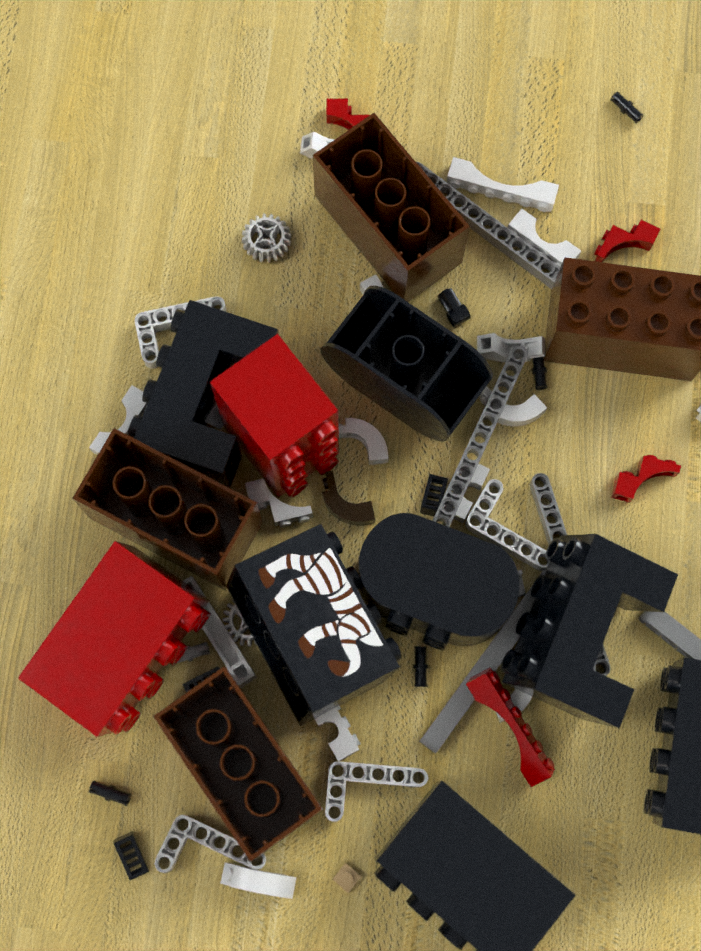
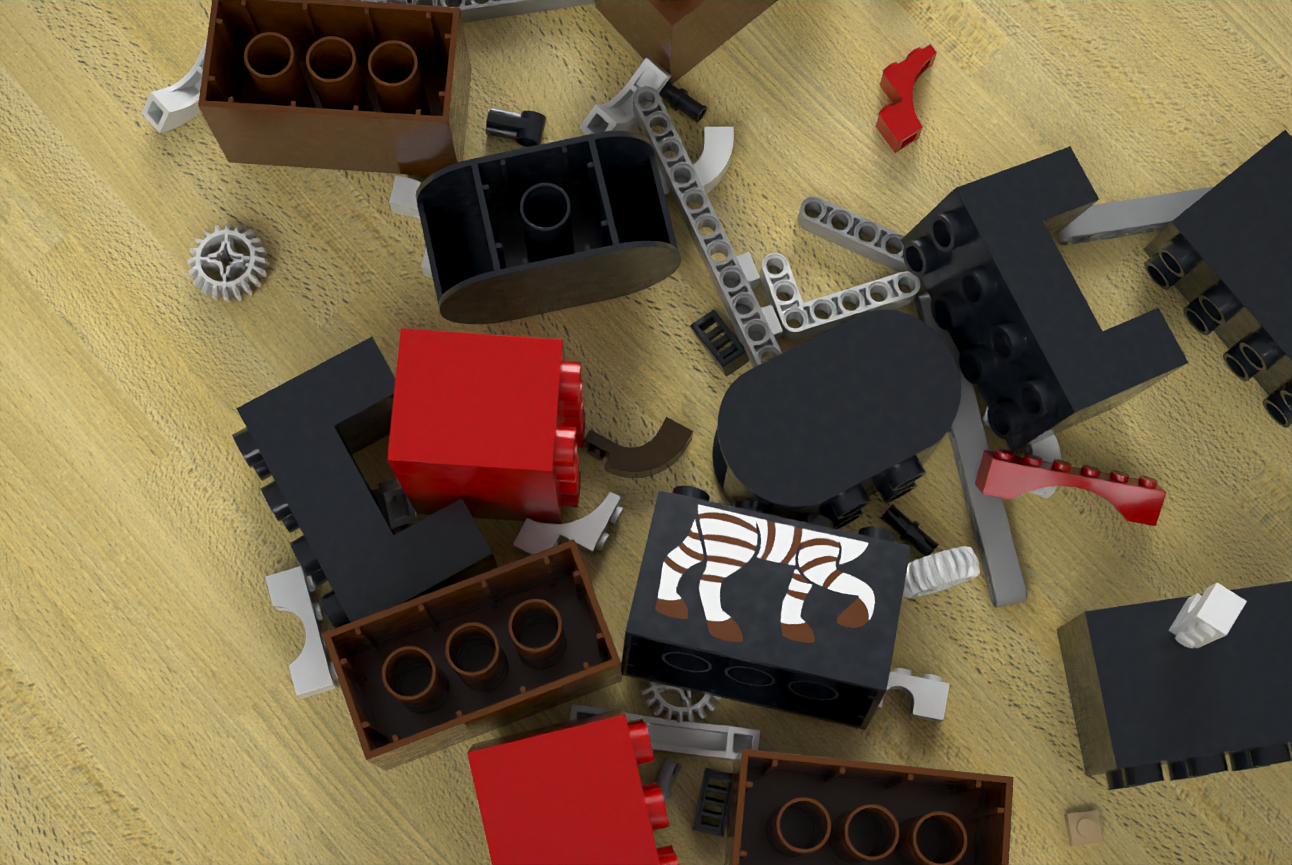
camera: 50 degrees left, 0 degrees up
(154, 325) = (228, 462): white beam -> none
(340, 113) = (154, 46): red arch -> none
(367, 778) = (988, 703): white beam -> none
(368, 436) = (599, 356): white arch -> none
(408, 696) = (940, 571): none -> white gear
(485, 840) = (1207, 616): none -> white arch

